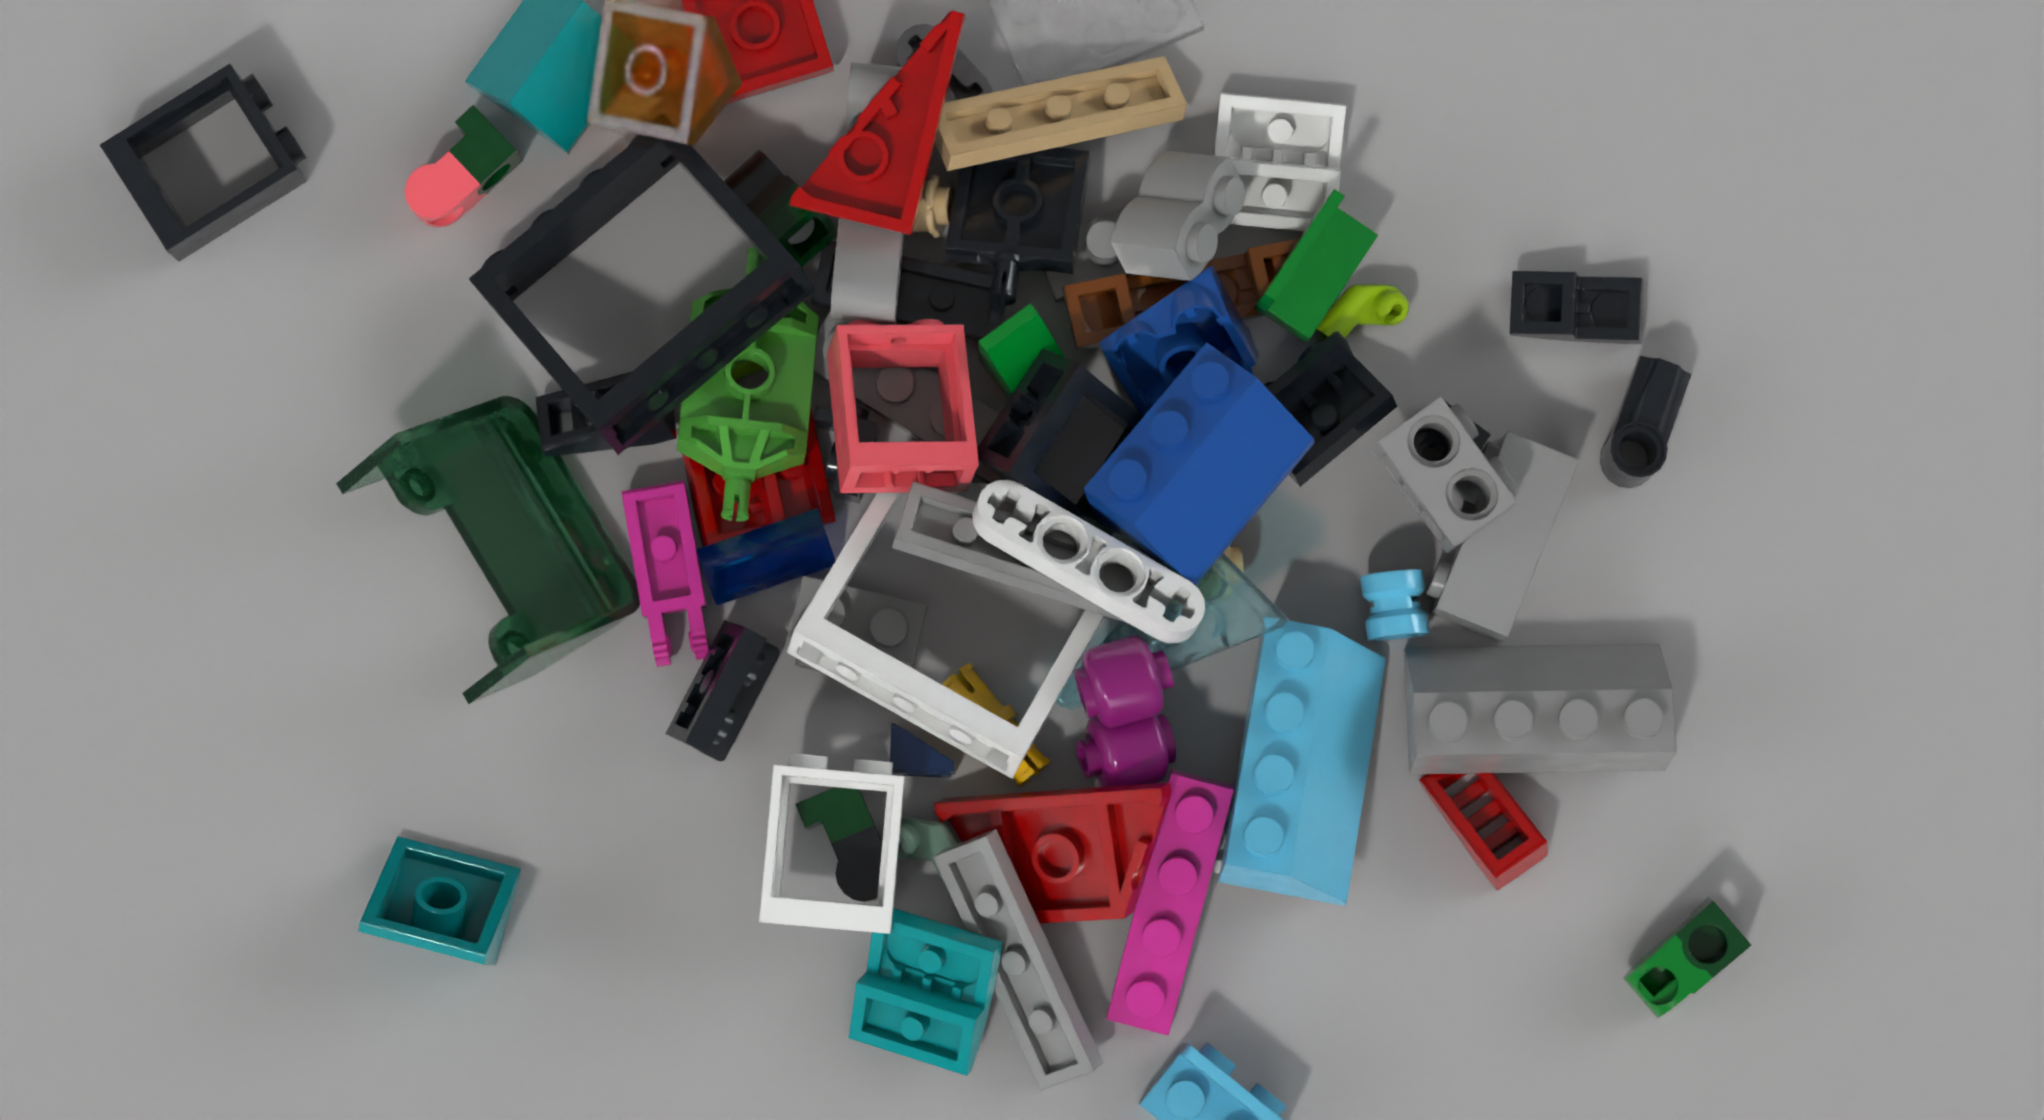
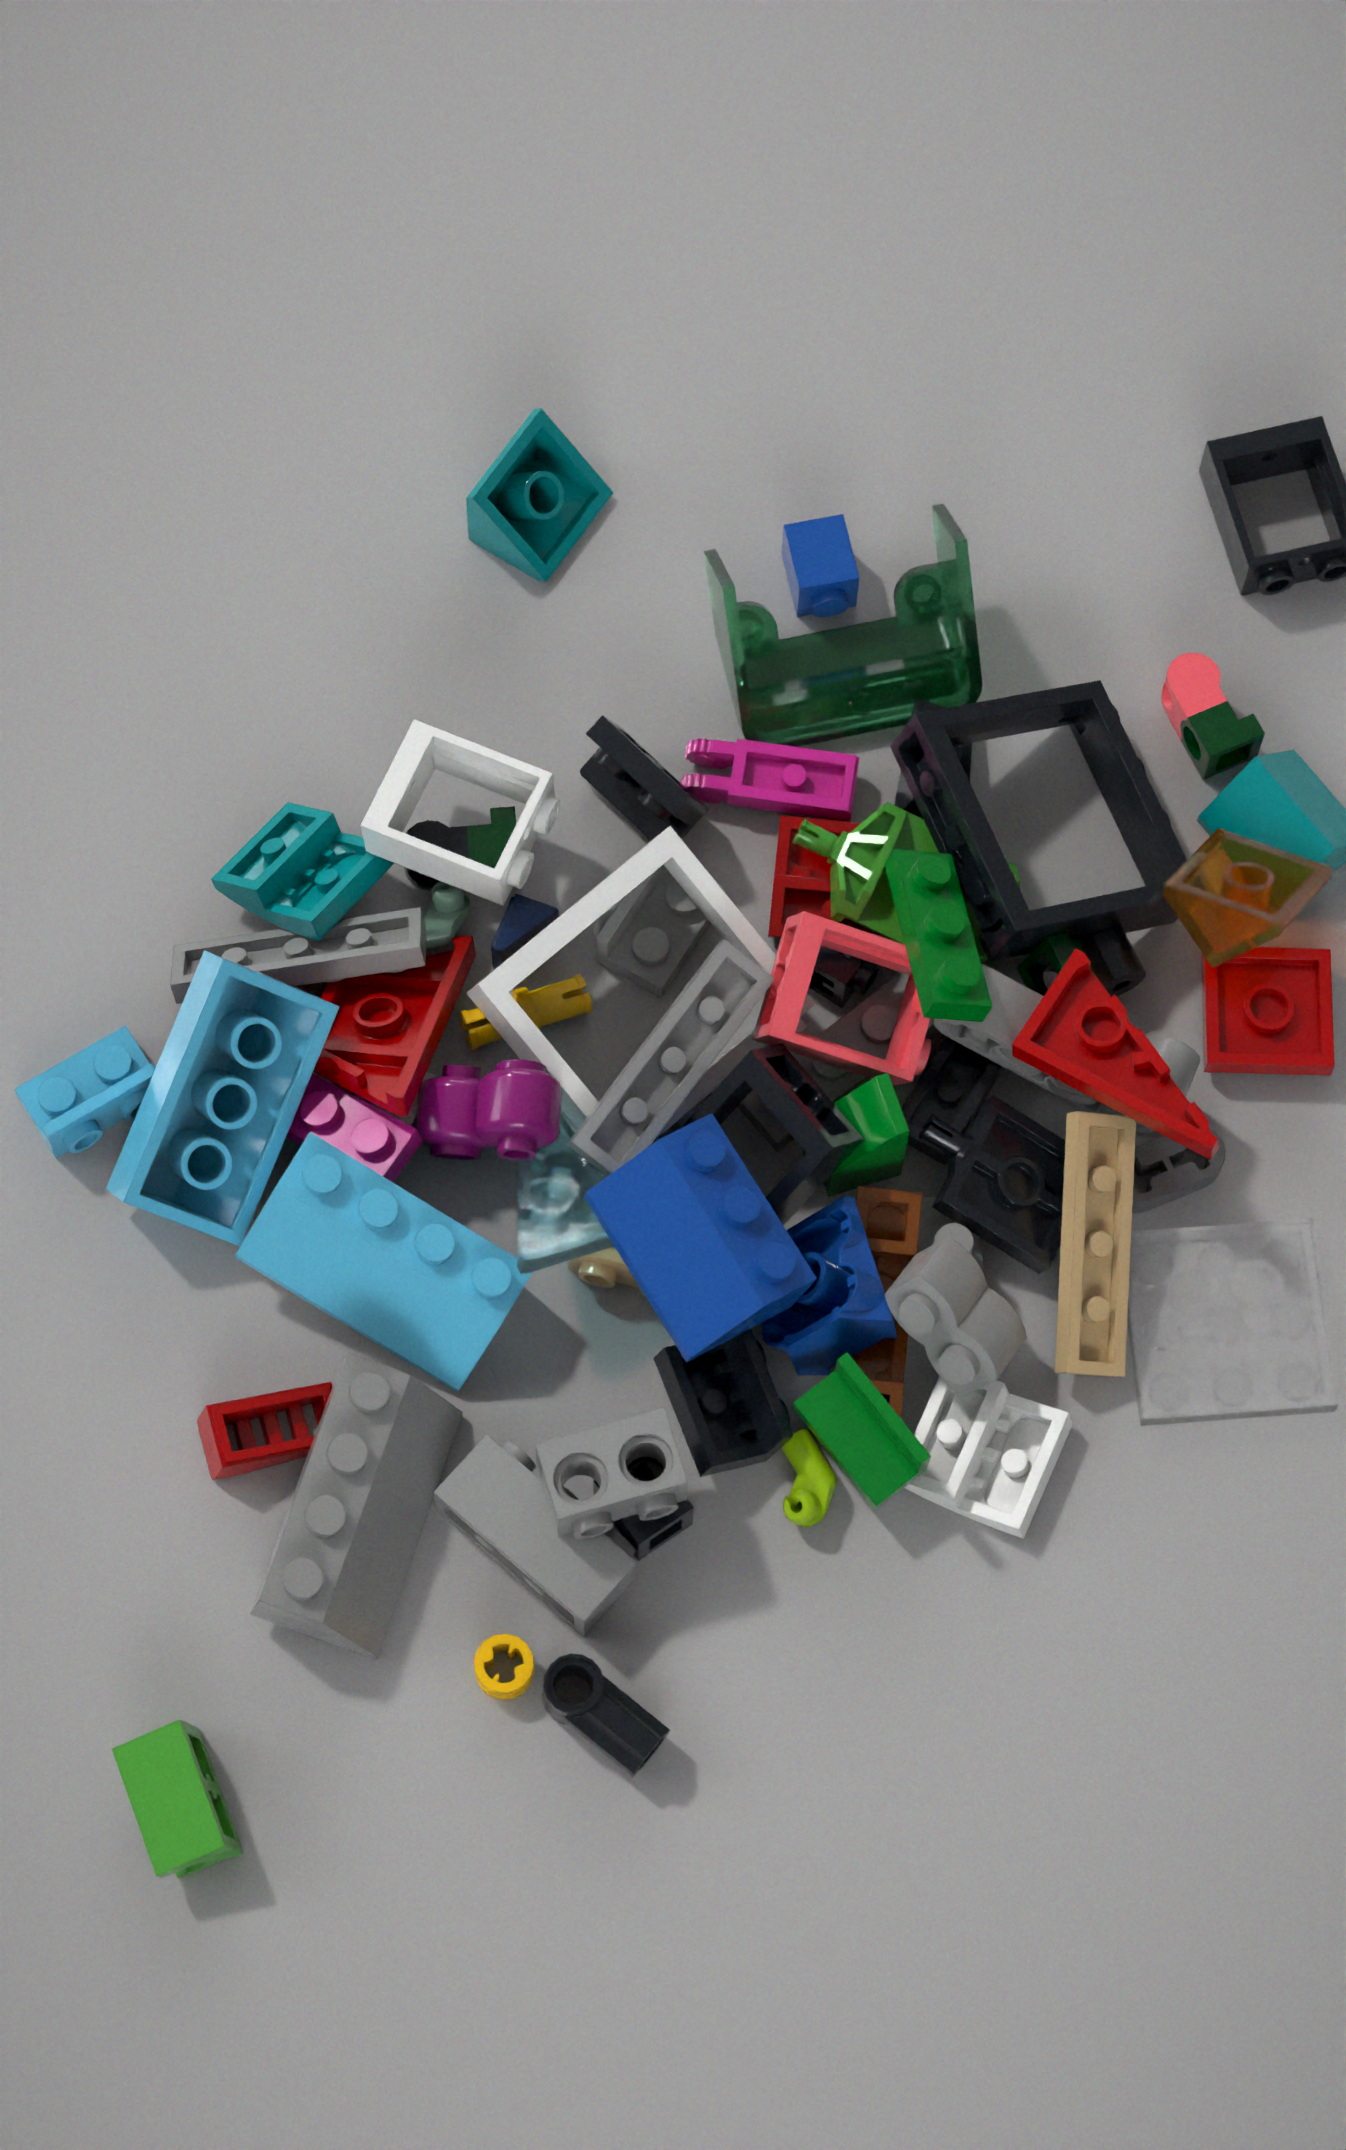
camera: 110 degrees right, 15 degrees down
(423, 595) = (820, 566): none -> blue brick
(766, 557) = (755, 858): clear blue tile -> none
(819, 338) = (938, 935): none -> green plate
(934, 207) = (1044, 1105): tan plate -> none
(1093, 552) = (638, 1100): white beam -> none
(1201, 973) = (222, 1099): none -> medium azure slope
(1395, 606) = (505, 1409): medium azure wheel -> none
(1576, 307) = (741, 1693): black slope -> none
(1628, 507) = (485, 1660): none -> yellow bush
(1686, 958) = (61, 1573): leg -> none
(1856, 770) = (177, 1800): none -> bright green hinge

